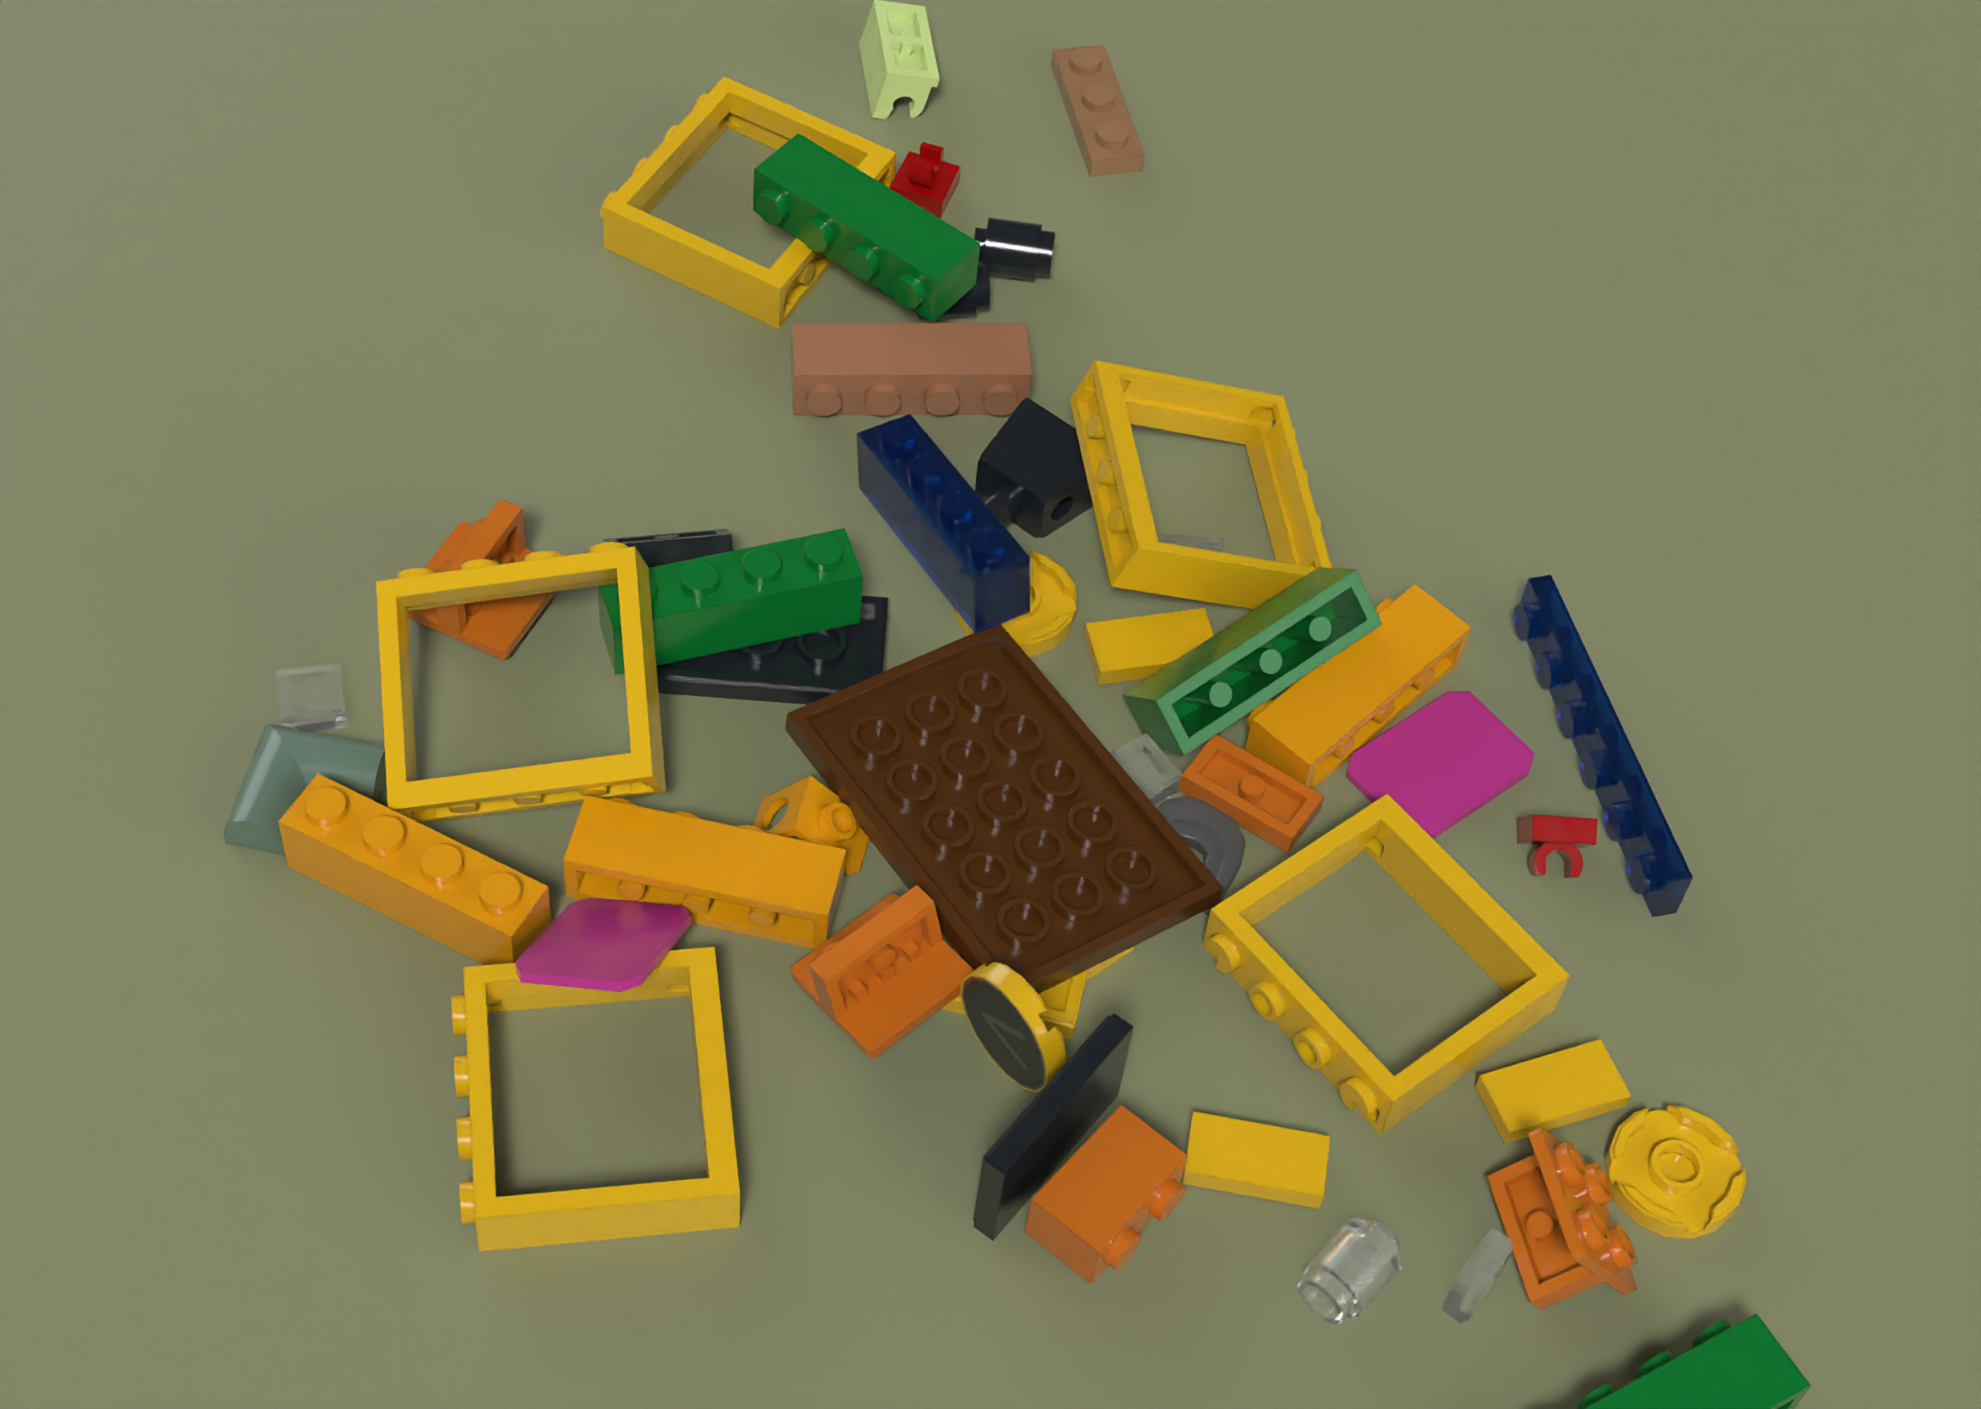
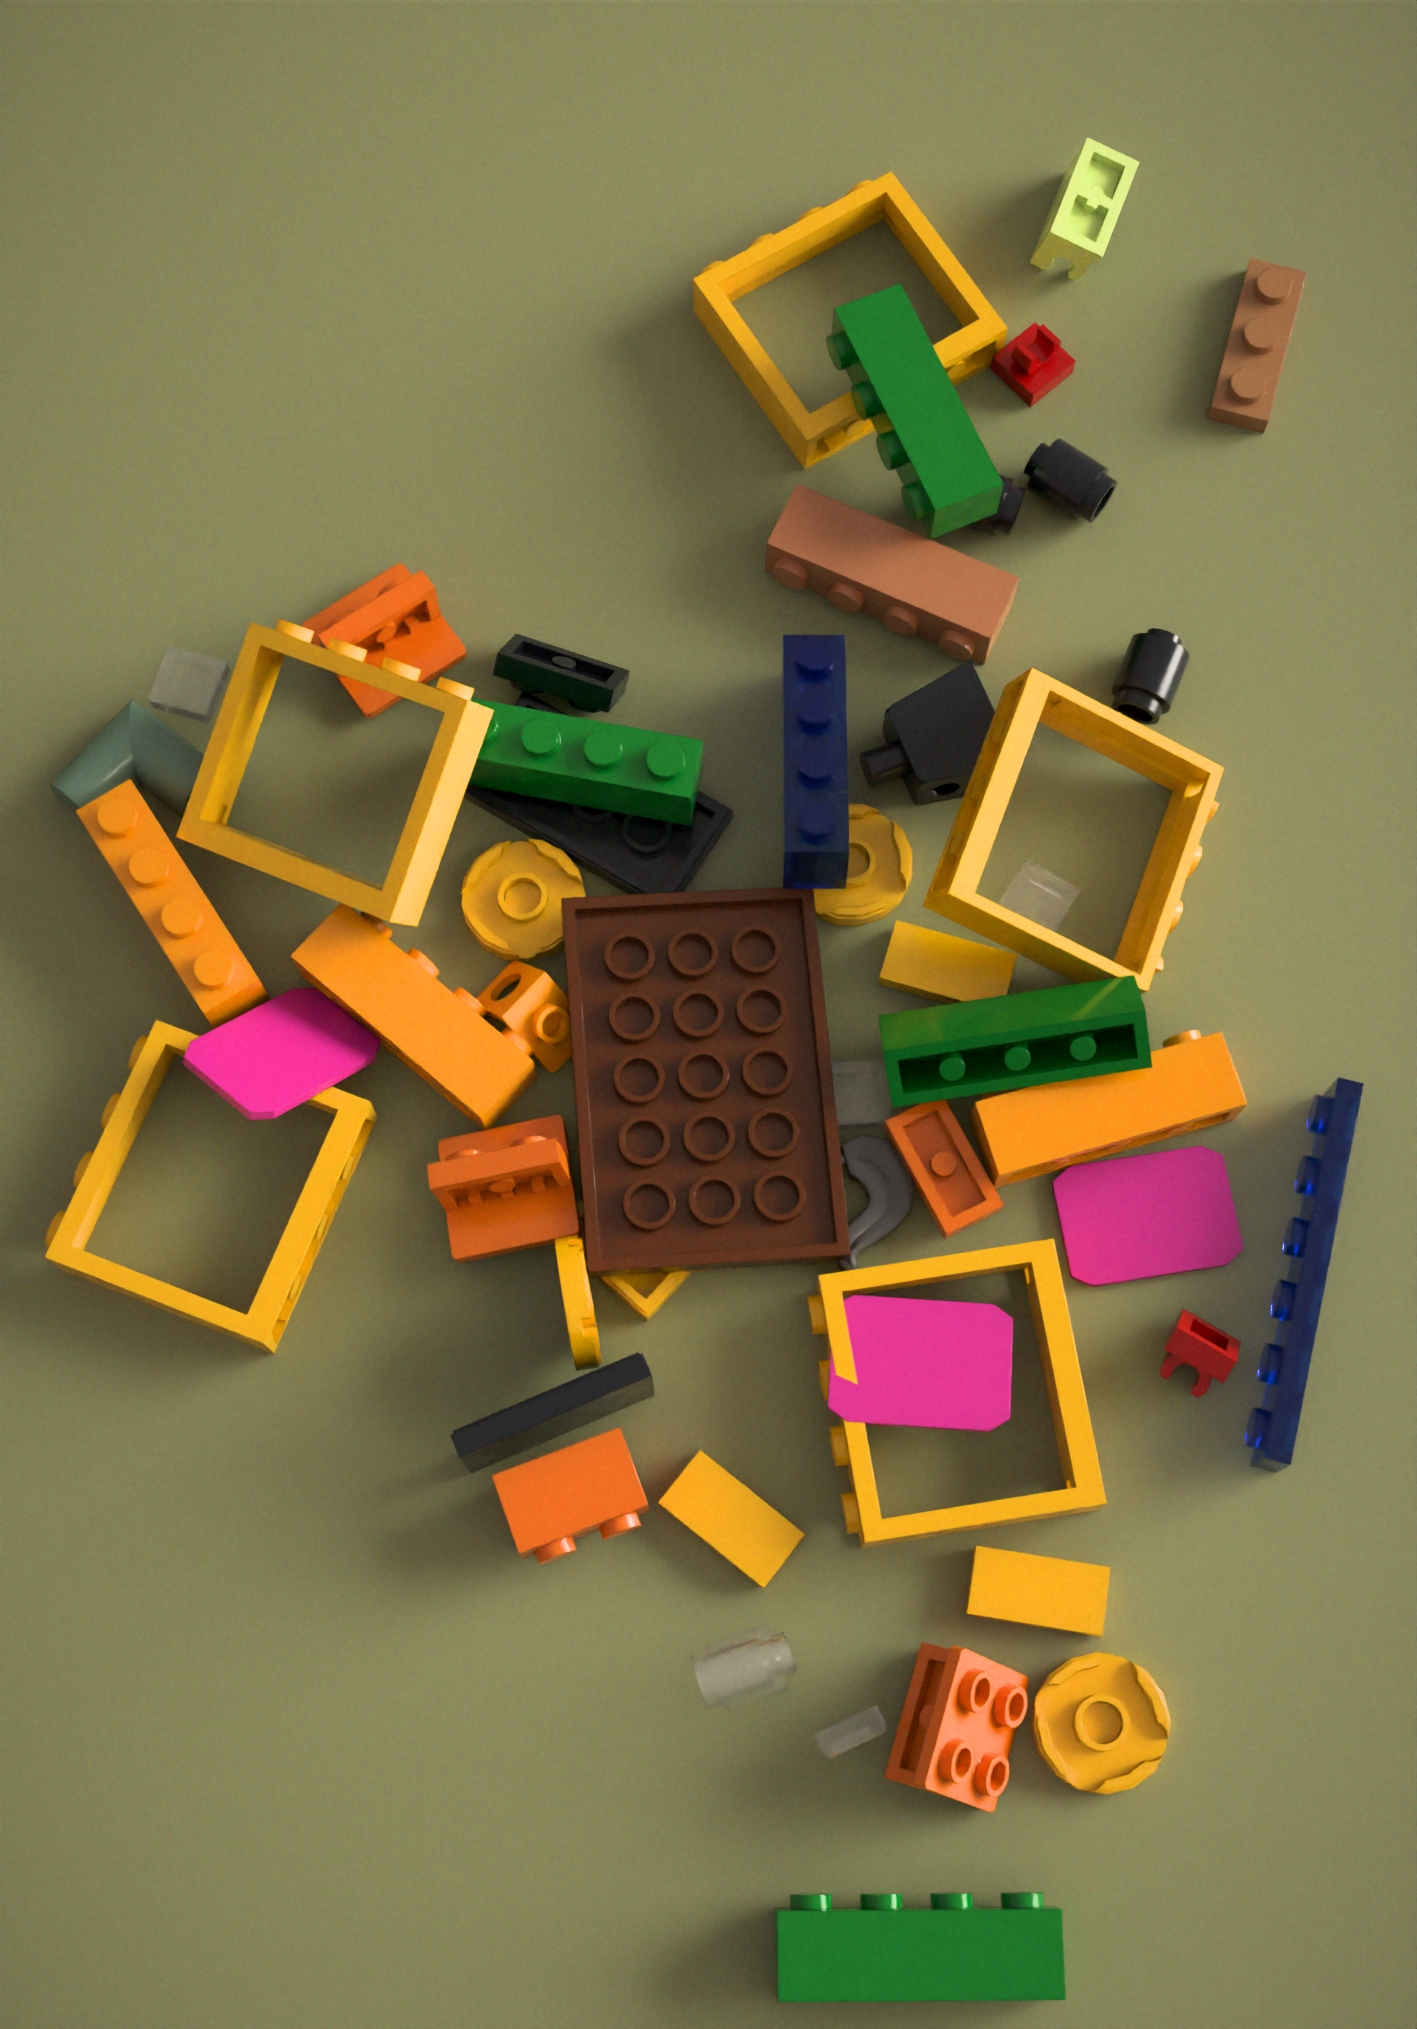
camera: 35 degrees right, 20 degrees up
(739, 746) = (516, 898): none -> yellow tile
(1173, 350) = (1149, 676): none -> black brick
(1347, 940) = (925, 1364): none -> dark pink piece

